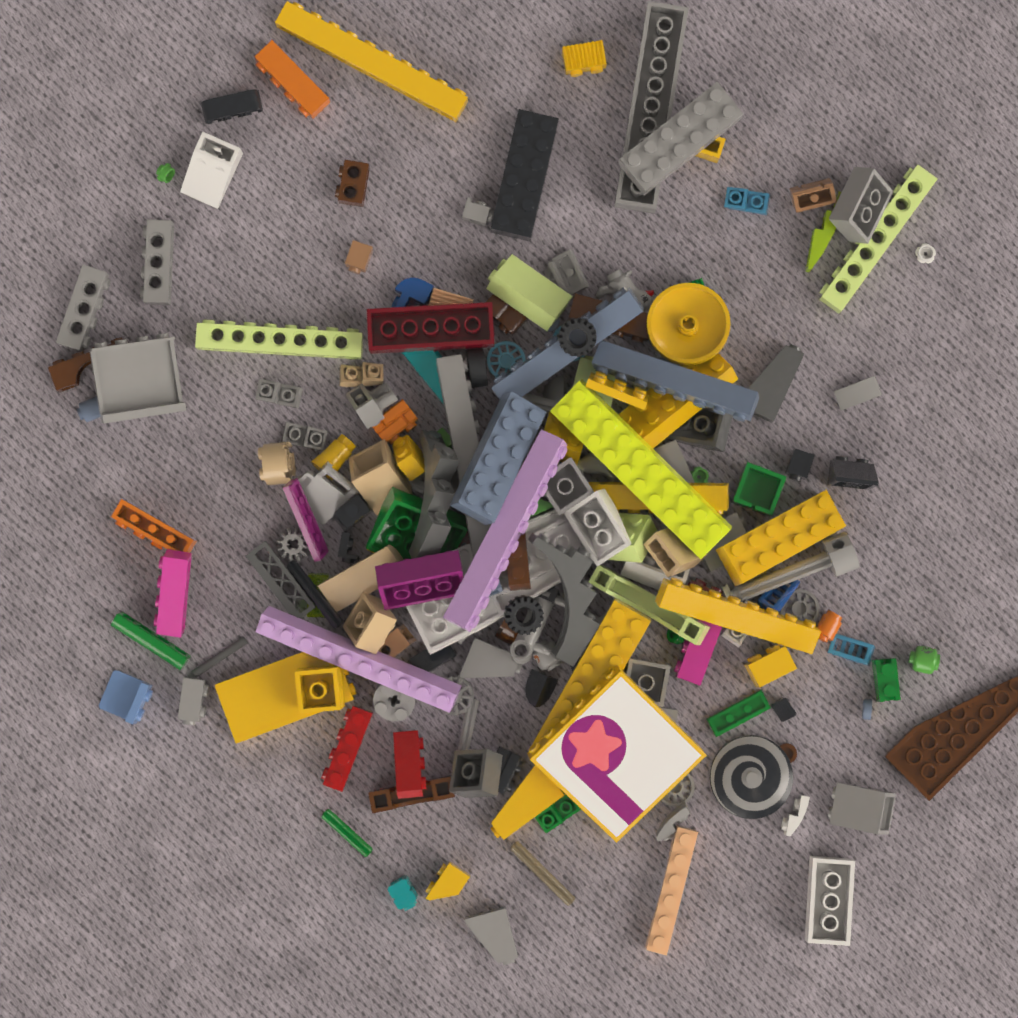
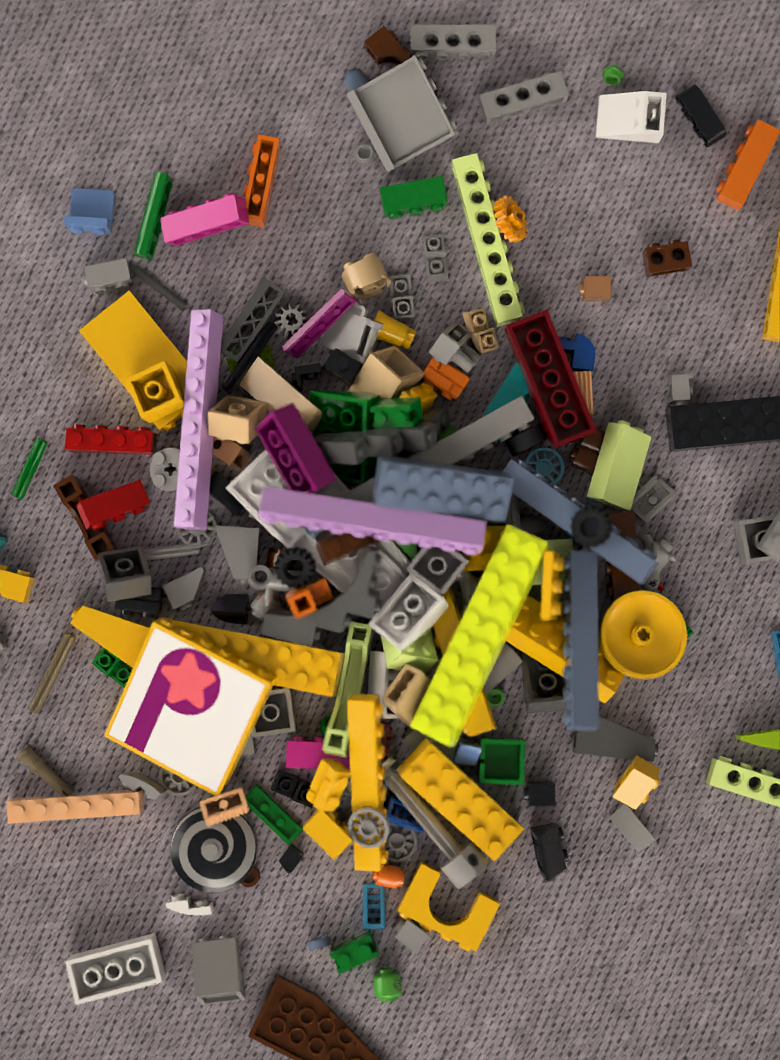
camera: 75 degrees right, 0 degrees up
(159, 425) = (364, 154): none -> light grey plate
(217, 394) = (413, 197): none -> green brick
(269, 312) = (510, 219): none -> light orange gear
(414, 477) = (395, 412): none -> green brick
(507, 725) = (185, 589): none -> light grey slope
(555, 614) = (306, 598): none -> orange brick
(622, 913) = (38, 765): none -> dark tan pin
(717, 753) = (224, 806): none -> light nougat brick
(721, 685) = (292, 787): none -> black slope
(728, 651) = (328, 784): none -> yellow brick
(741, 517) = (467, 753): none -> medium blue slope
(778, 627) = (368, 827): none -> light grey wheel
(818, 375) = (637, 782): none -> yellow brick
(886, 623) = (410, 934): none -> light grey brick
(900, 572) = (466, 931): none -> yellow arch

